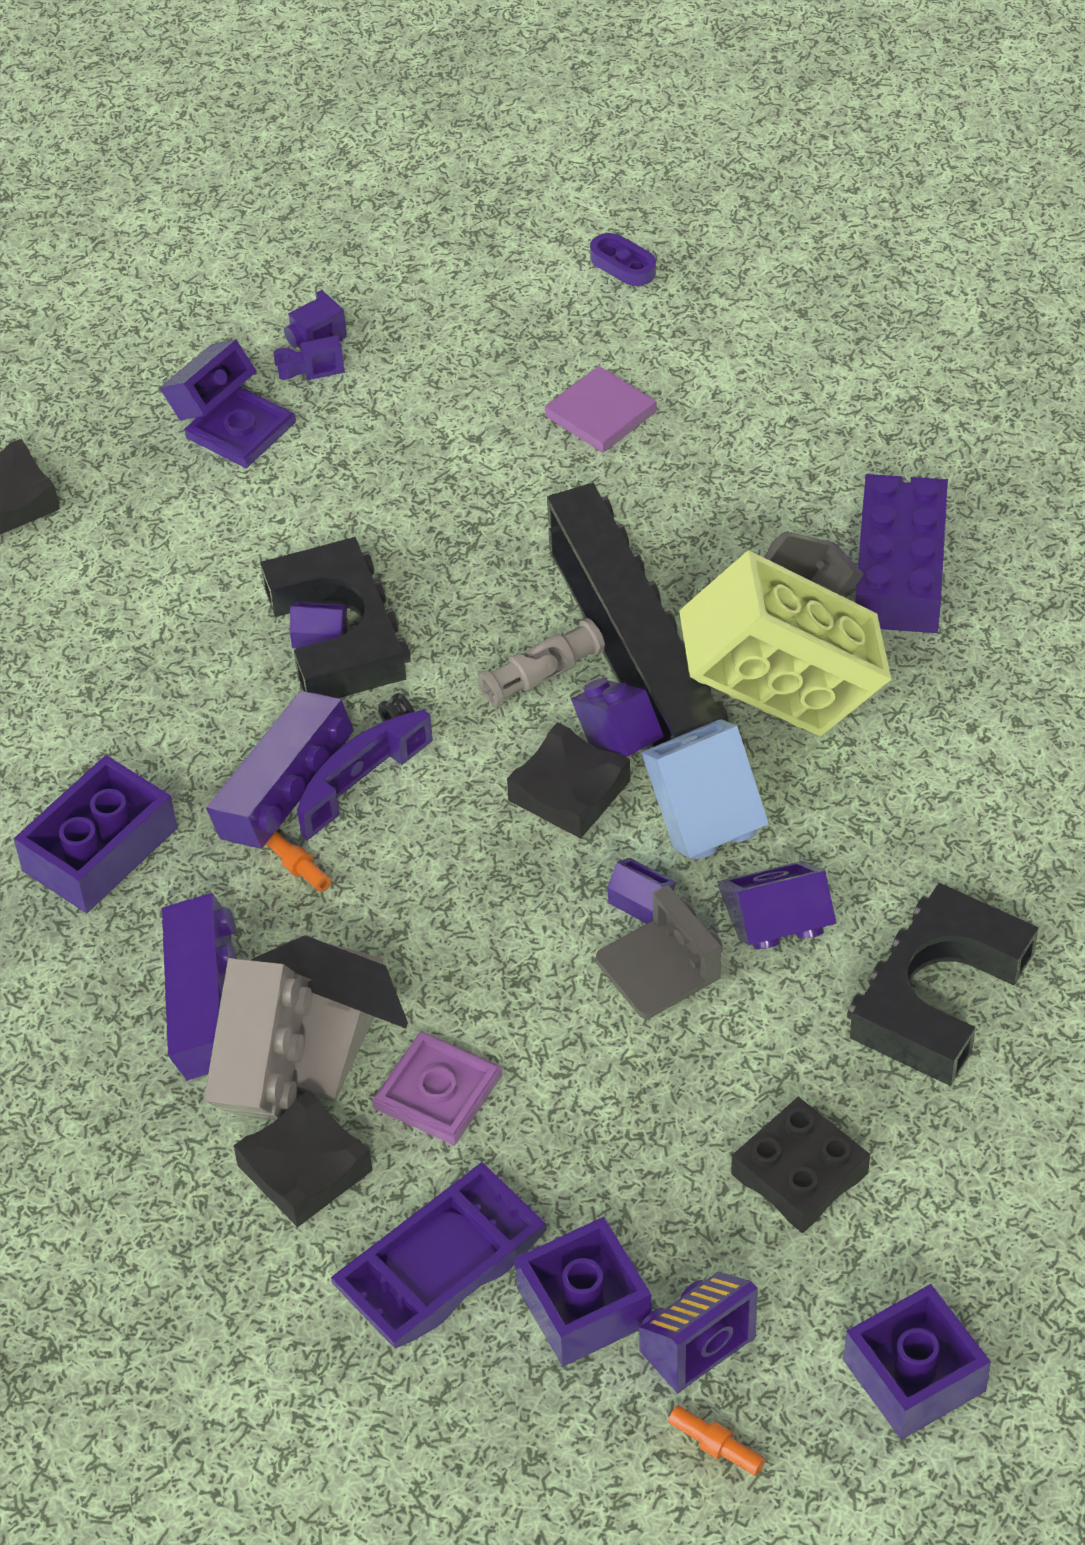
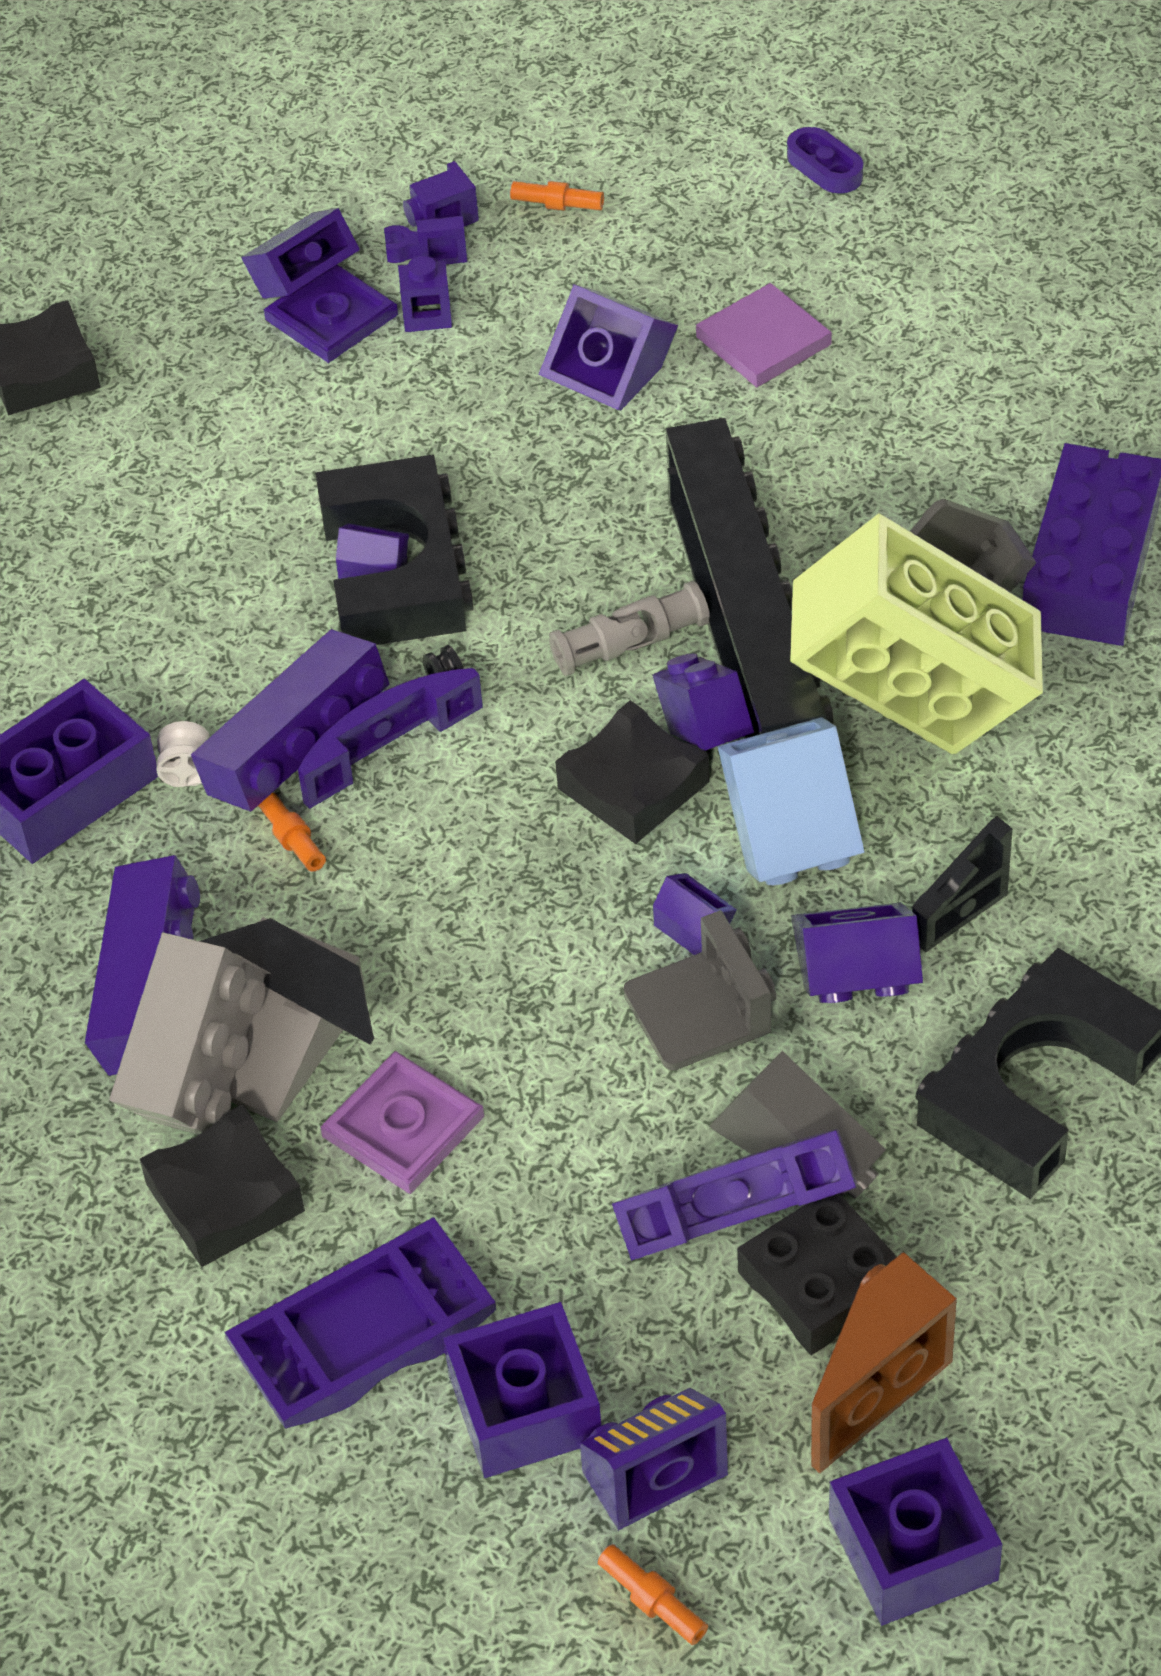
camera: 10 degrees right, 0 degrees up
(191, 803) = (175, 746): none -> white wheel
(315, 395) = (424, 284): none -> dark purple brick
(409, 310) = (557, 195): none -> orange bar
(476, 433) = (606, 347): none -> dark purple slope
(721, 1111) = (734, 1193): none -> dark purple slope
(761, 1054) = (789, 1106): none -> dark grey slope
(858, 839) = (967, 886): none -> black wing
(870, 1219) = (886, 1352): none -> dark orange slope

